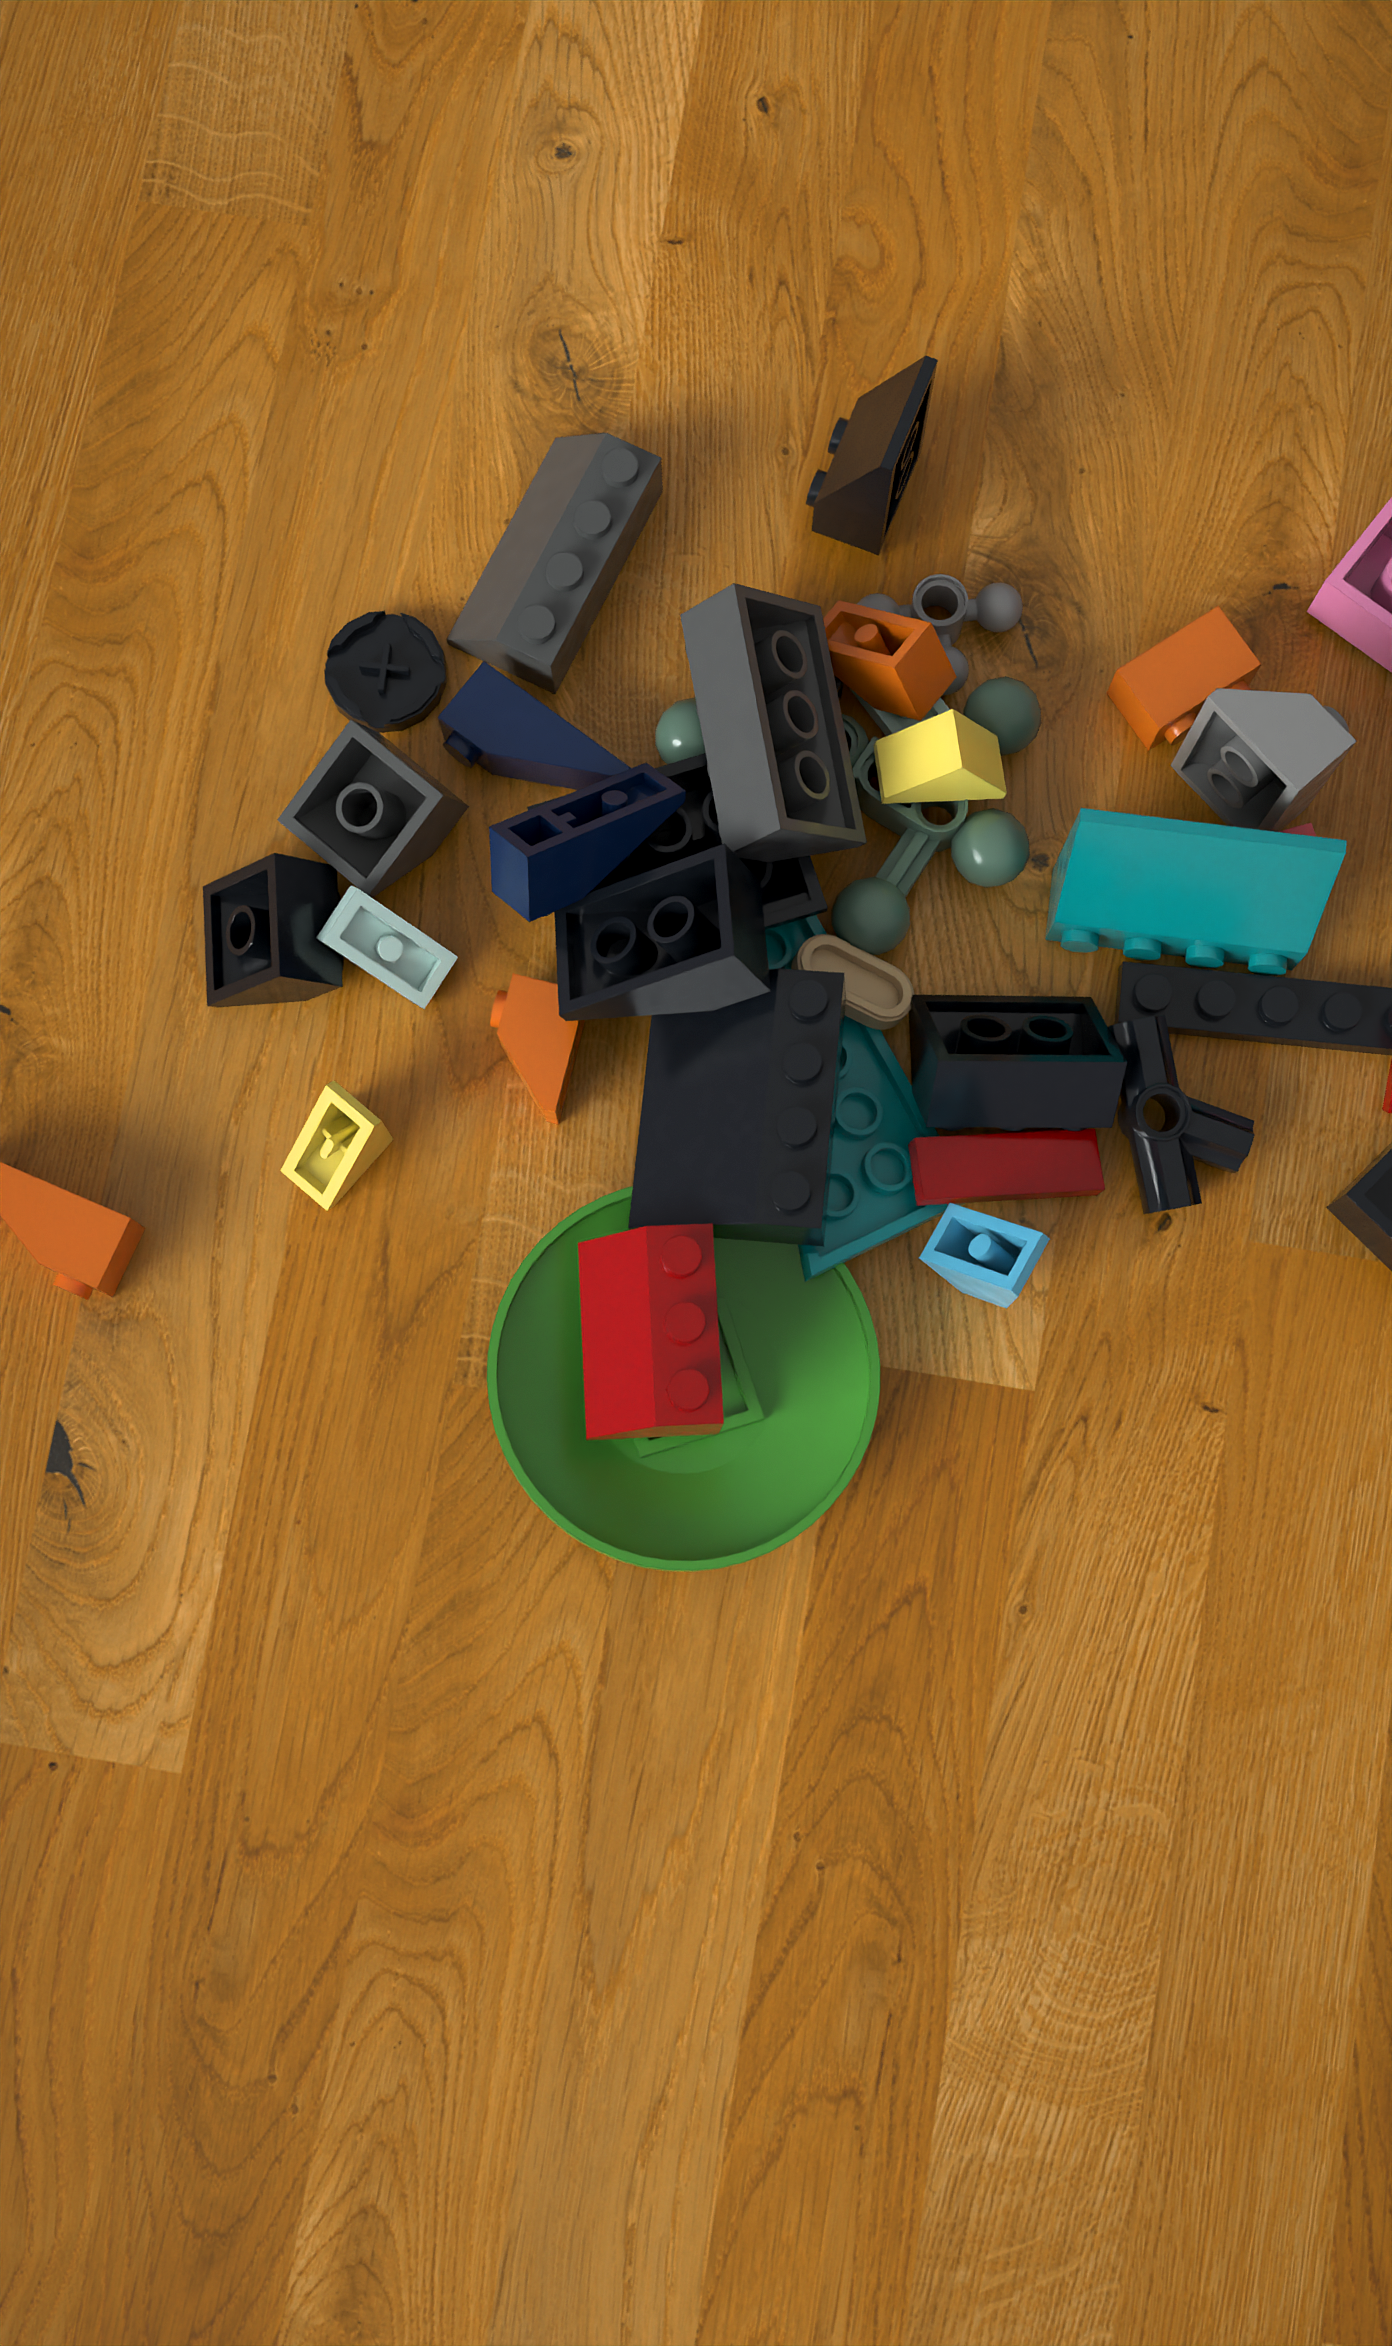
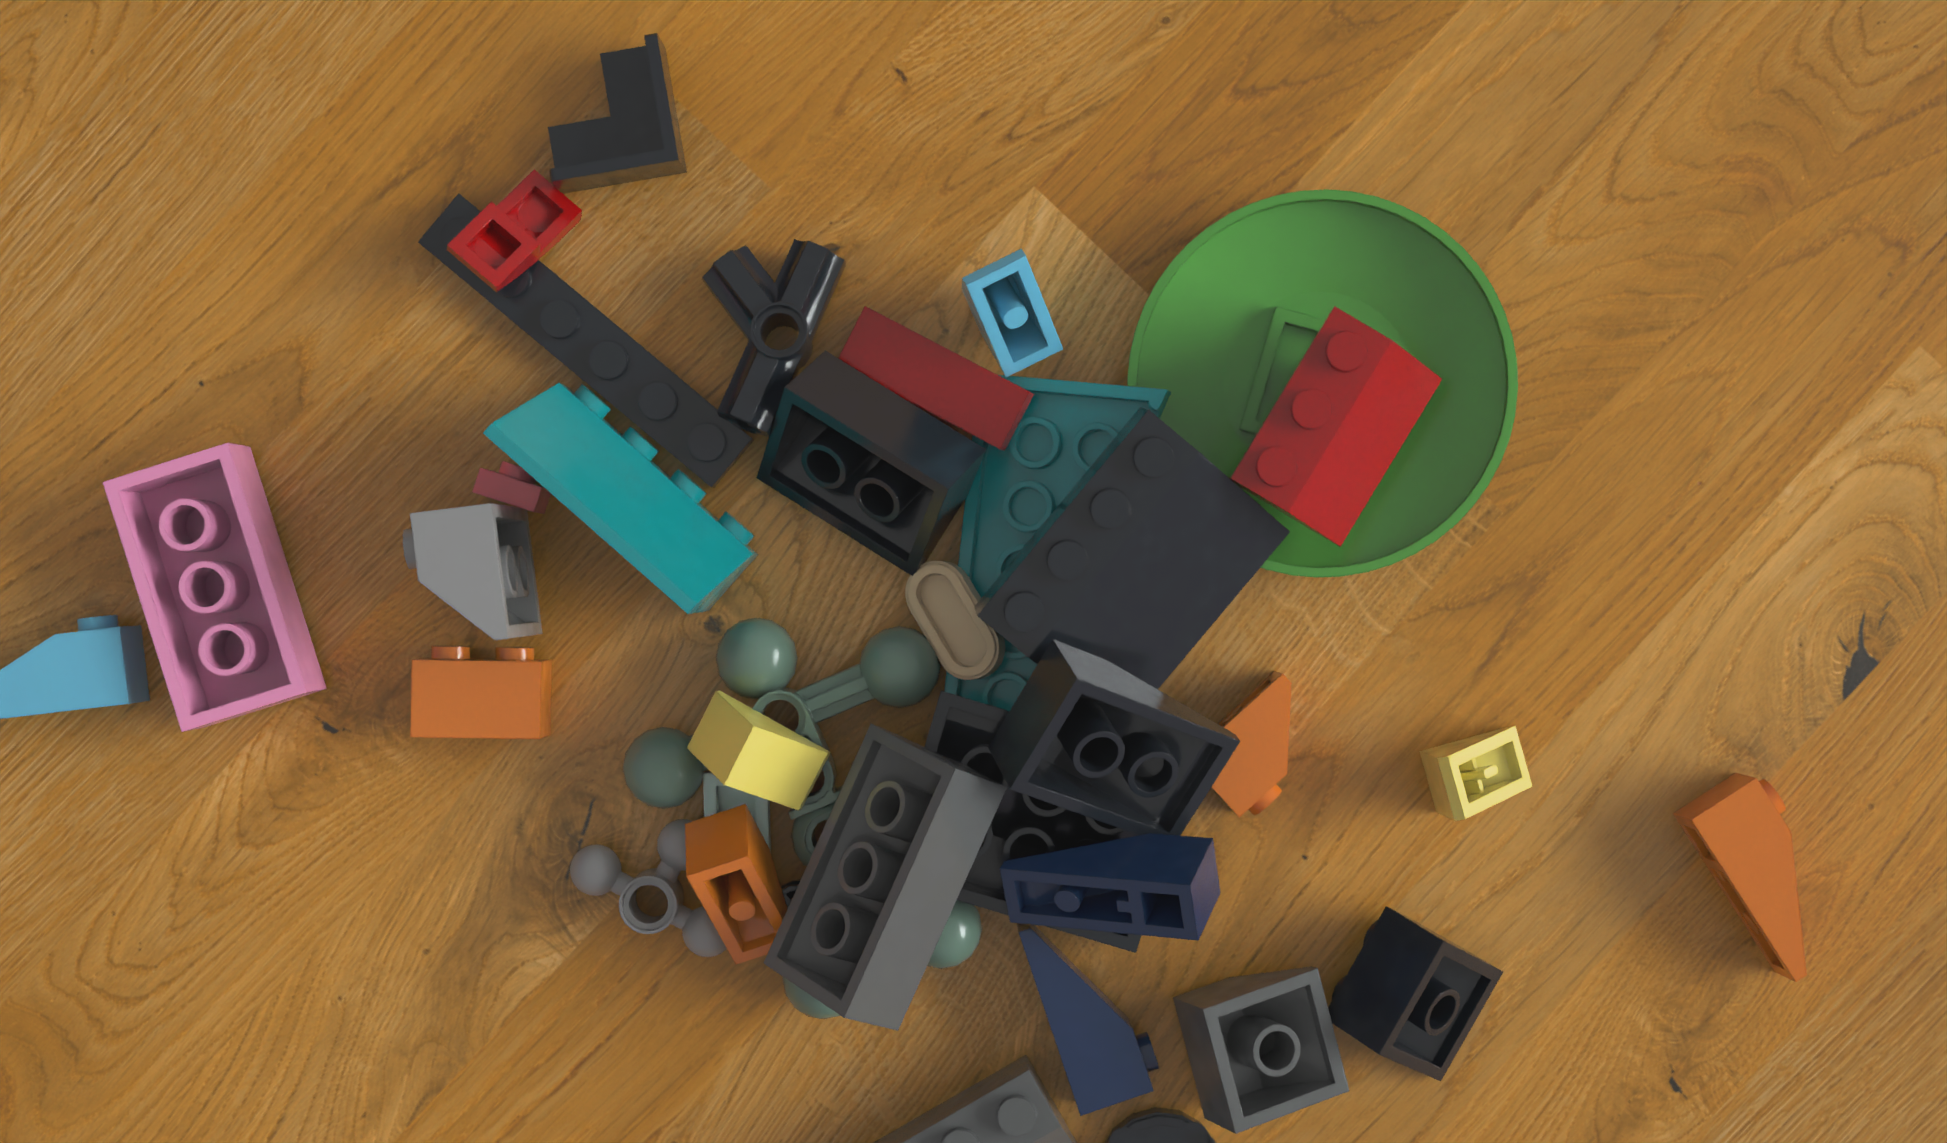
camera: 140 degrees left, 10 degrees up
(387, 947) = (1327, 914): light aqua plate -> none
(873, 459) = (617, 1074): black slope -> none

